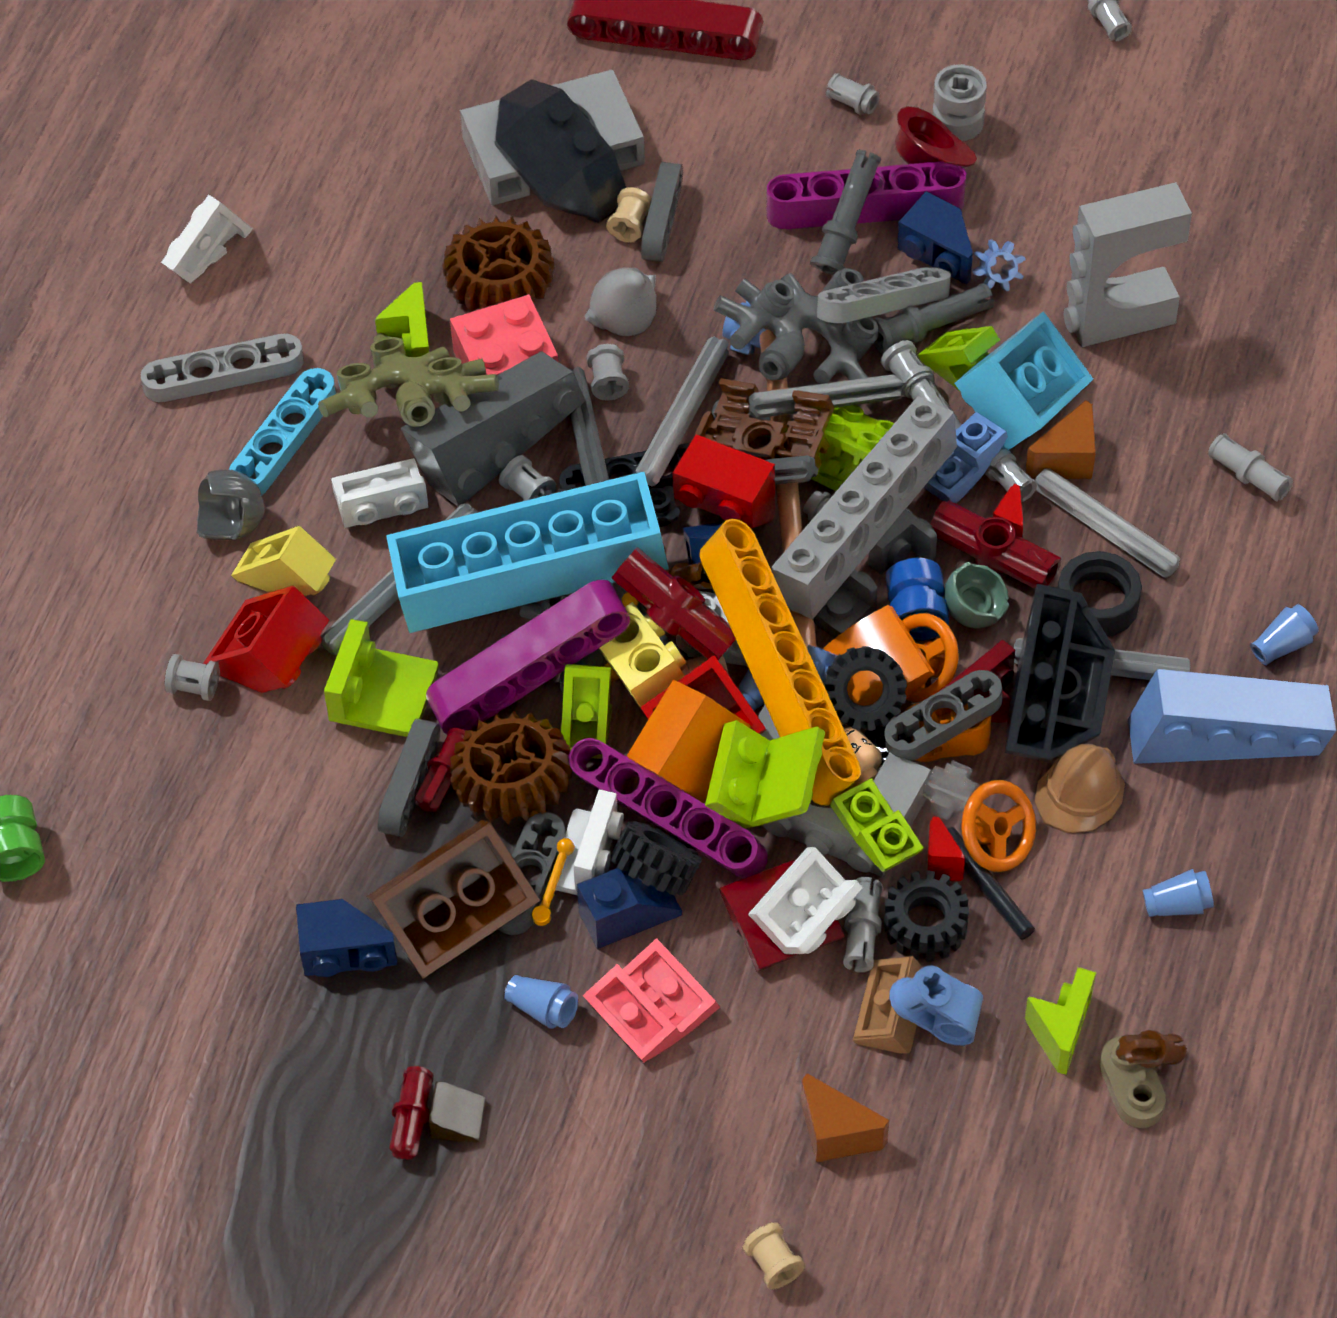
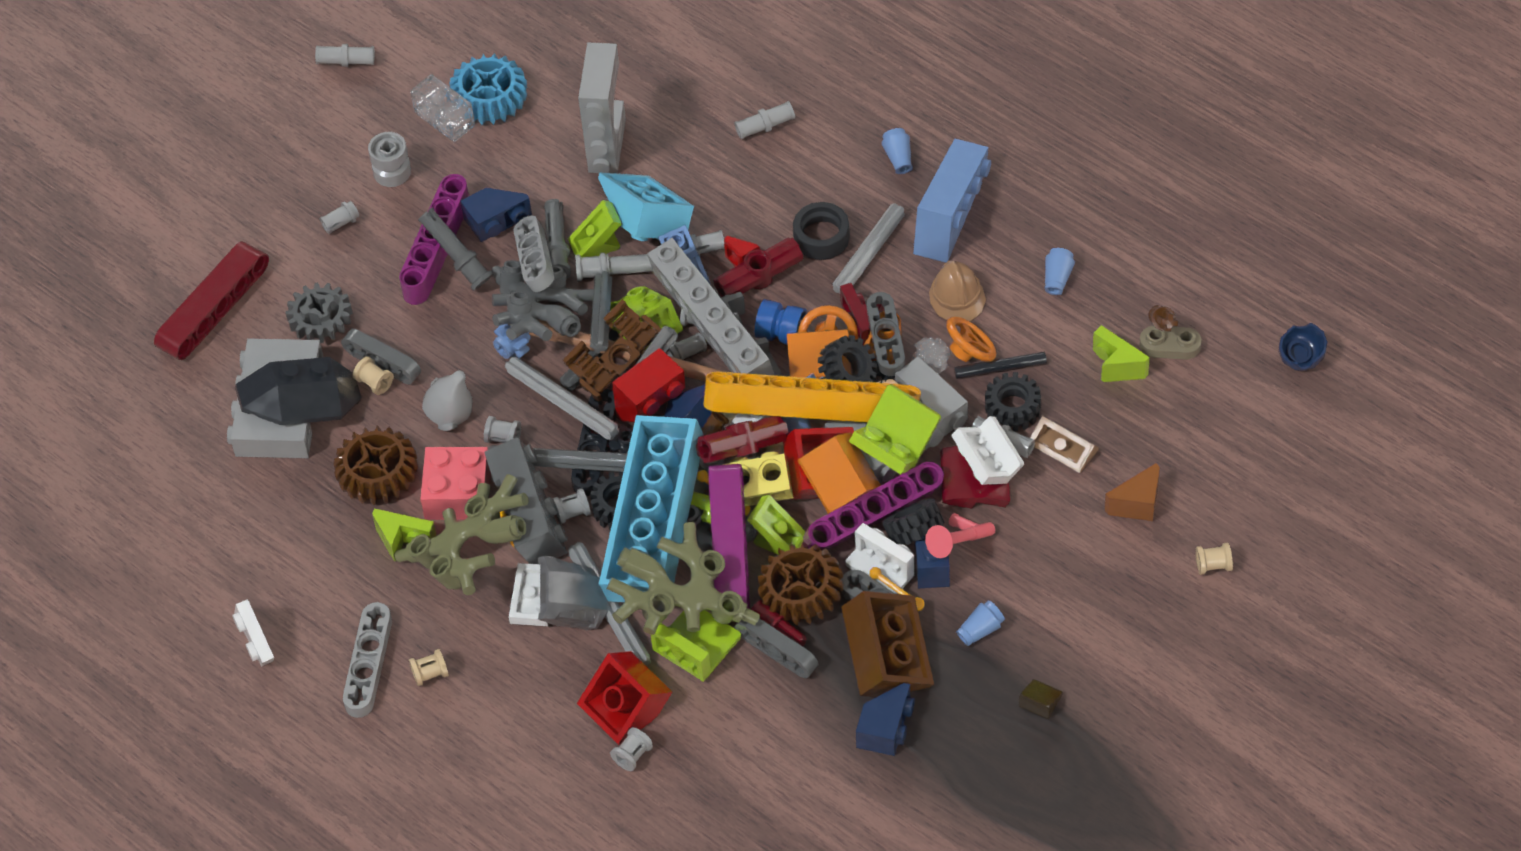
camera: 65 degrees left, 0 degrees up
(228, 428) = (428, 667): none -> tan bush
(228, 505) = (501, 685): dark grey hair -> none
(286, 561) = (566, 667): light yellow slope -> none
(287, 435) = (445, 640): medium azure beam -> none
(371, 510) = (570, 594): none -> flat silver slope
(402, 638) = (664, 594): none -> olive plant
(411, 1112) = (1030, 720): dark red axle -> none
(651, 1001) = (1005, 566): coral slope -> none
(688, 944) = (941, 541): none -> coral piece
(696, 127) = (319, 312): none -> dark grey gear
(875, 827) = (955, 396): lime slope -> none
(928, 140) = (417, 189): dark red piece -> none
(938, 1004) = (1083, 414): medium blue piece -> none
(944, 853) = (972, 376): red slope -> none
(976, 596) = (793, 291): sand green hair -> none
(1008, 270) = (537, 186): medium blue gear -> none
(1059, 677) = (881, 264): black wedge -> none
(1066, 122) = (442, 108): none -> clear brick
(1066, 447) = (706, 200): dark orange slope -> none
(1107, 523) = (767, 208): light grey axle -> none
(1128, 156) = (488, 82): none -> dark azure gear
(1199, 1254) = (1303, 347): none -> dark blue hair

